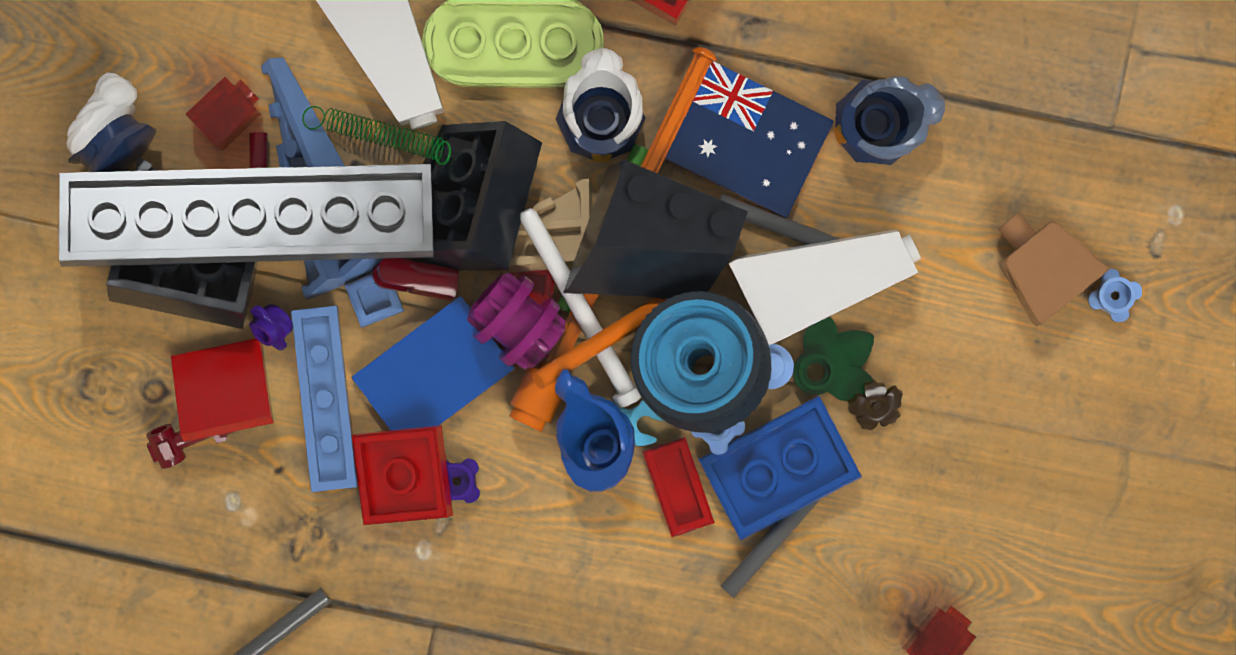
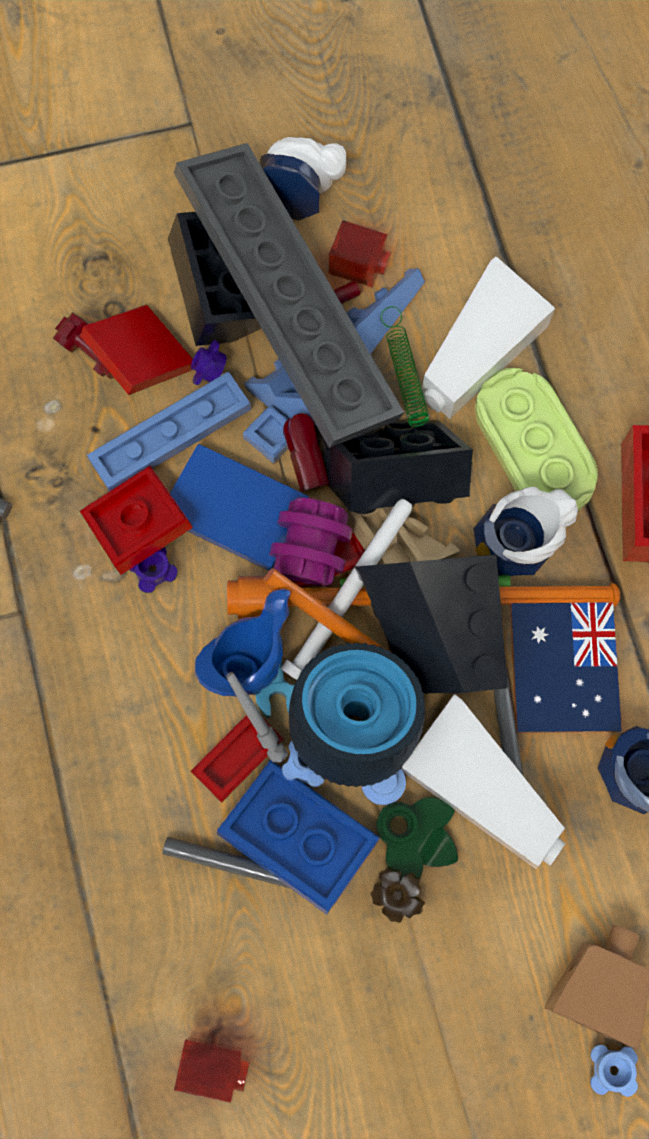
camera: 60 degrees right, 15 degrees down
(676, 453) = (266, 734): none -> light grey piece

